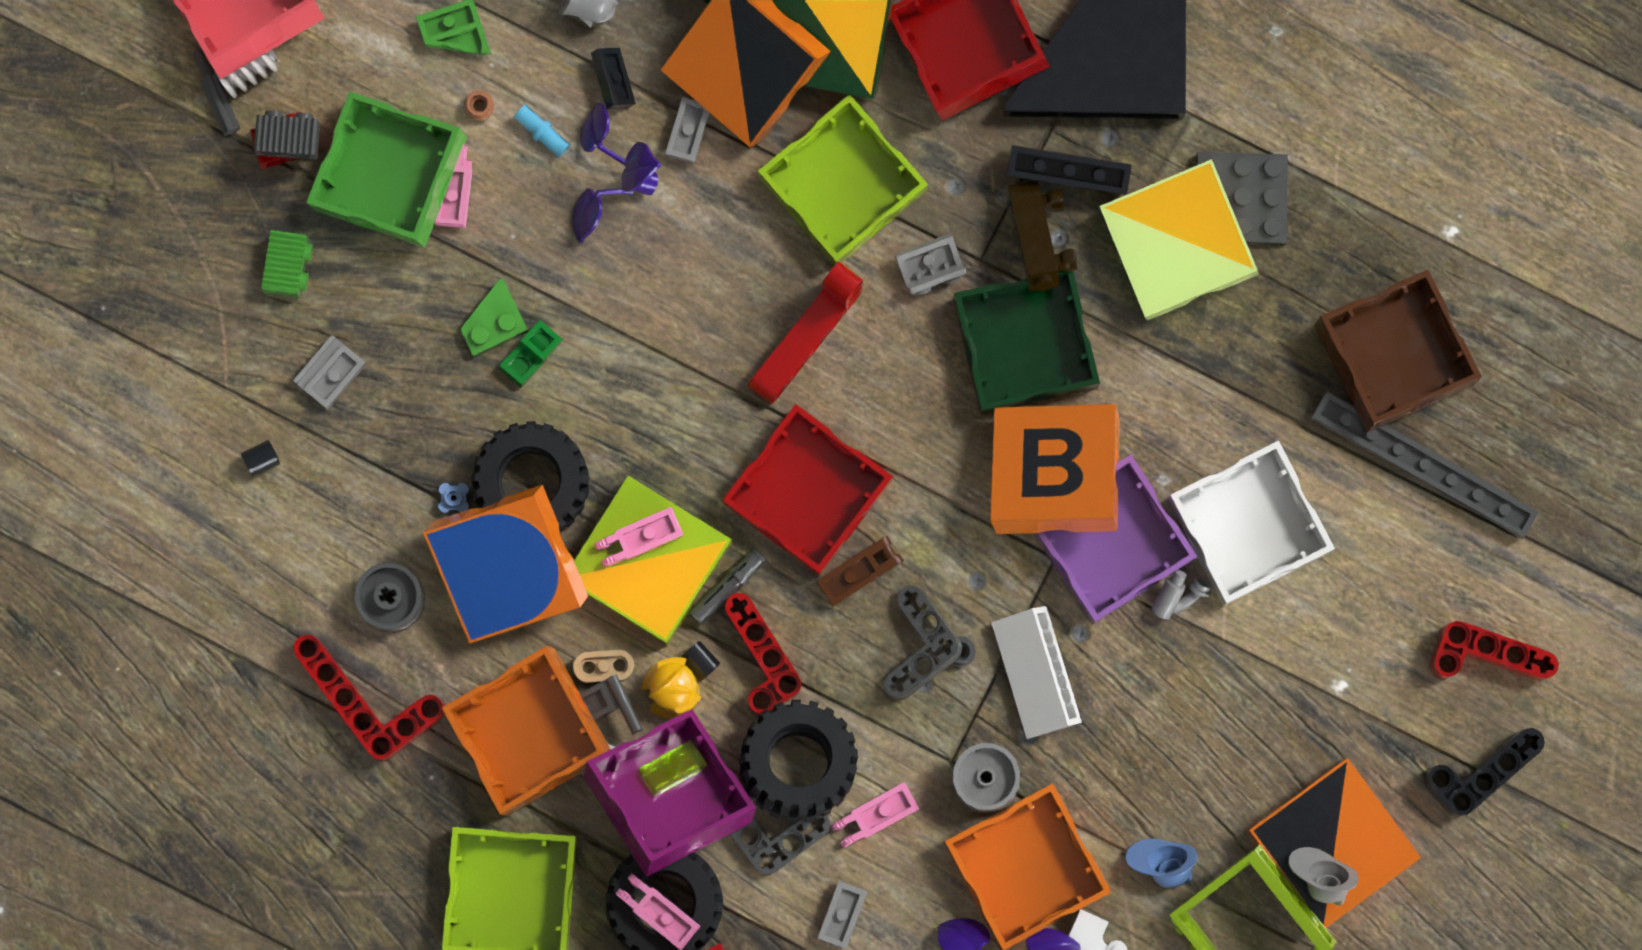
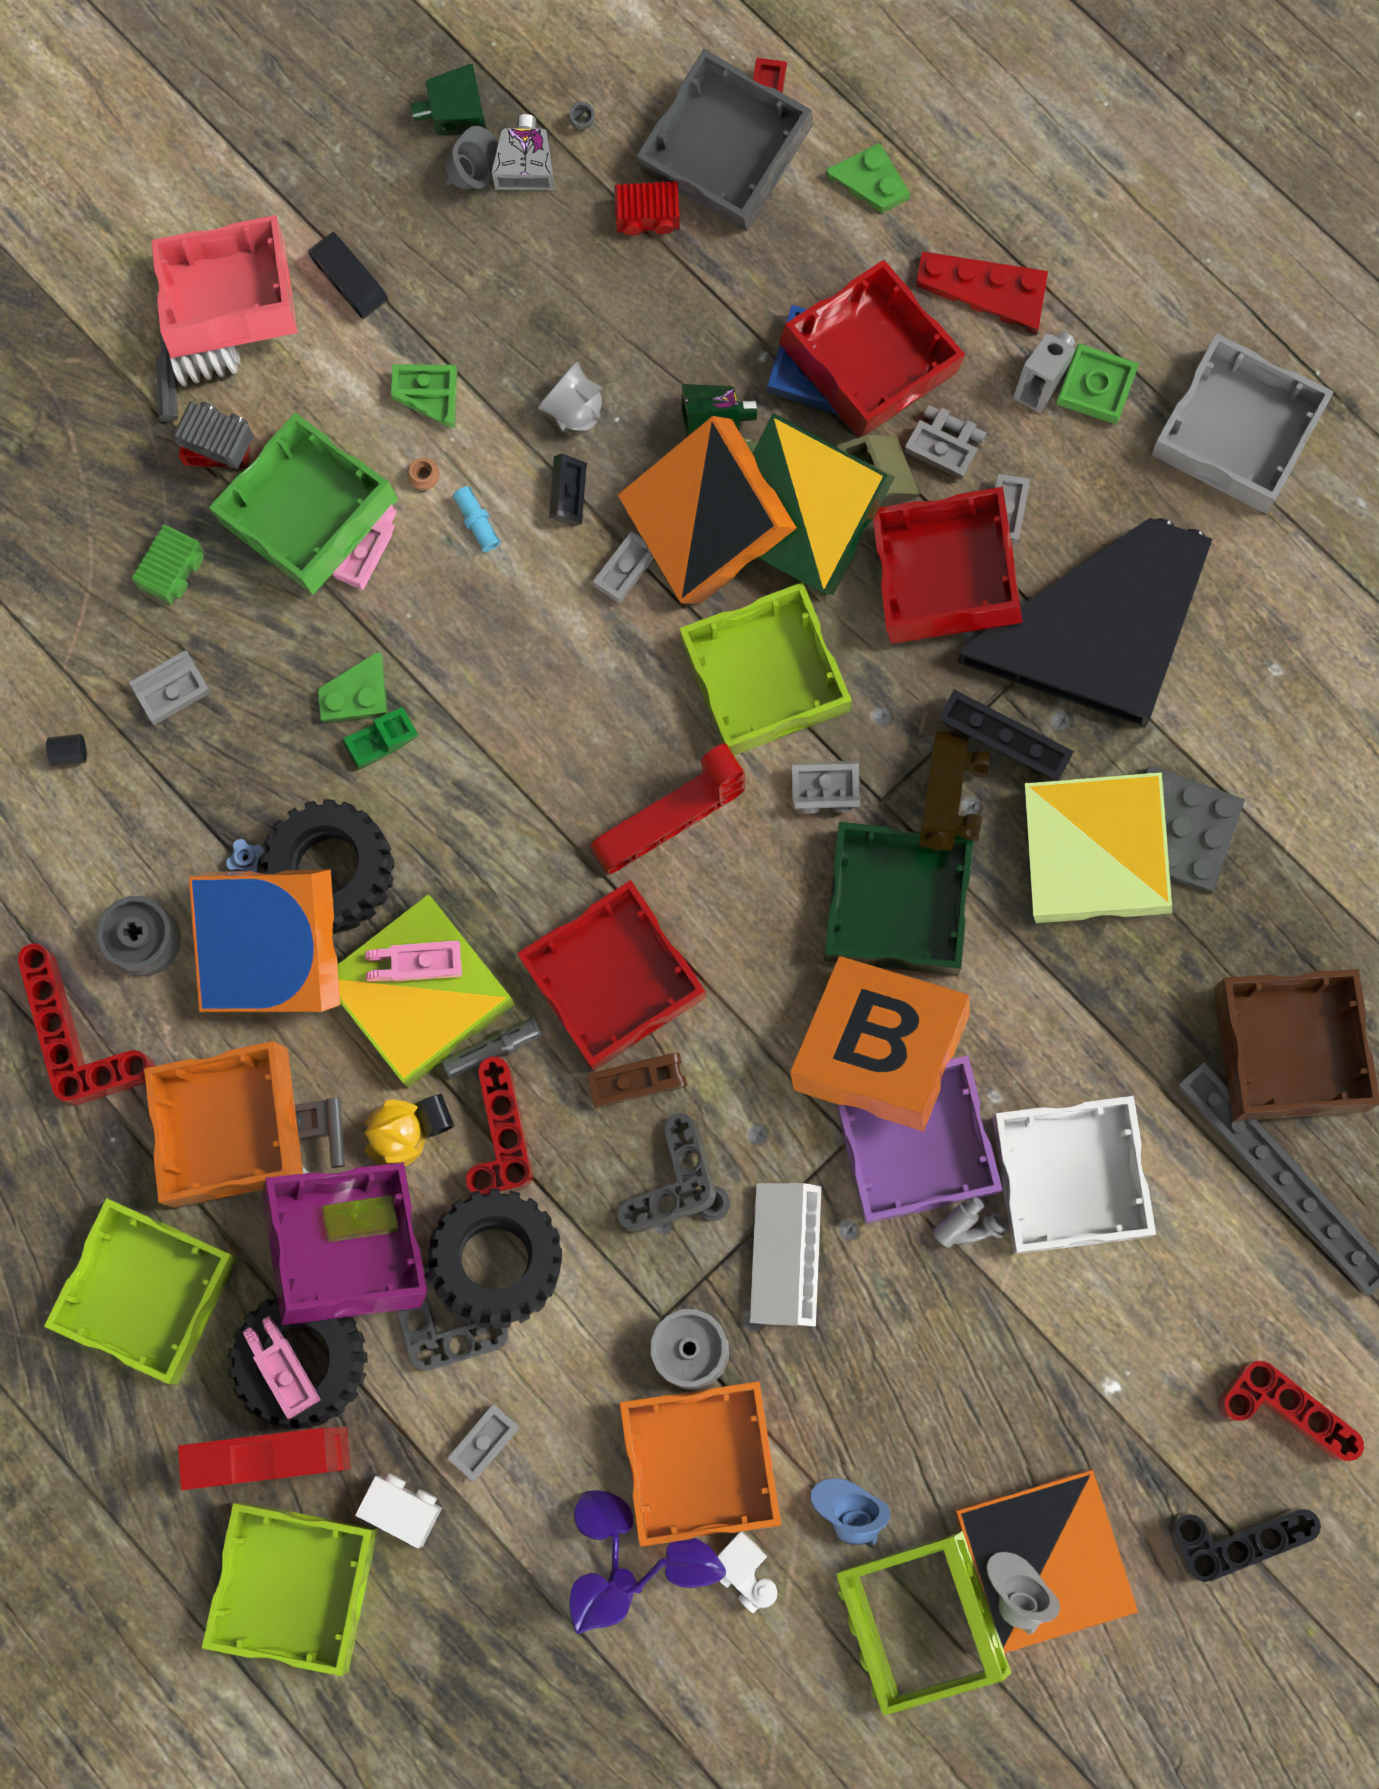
camera: 30 degrees right, 5 degrees down
(604, 665) = (333, 1085): tan plate -> none
(637, 175) = (547, 589): dark purple plant -> none
(878, 813) = (562, 1346): bright pink hinge -> none

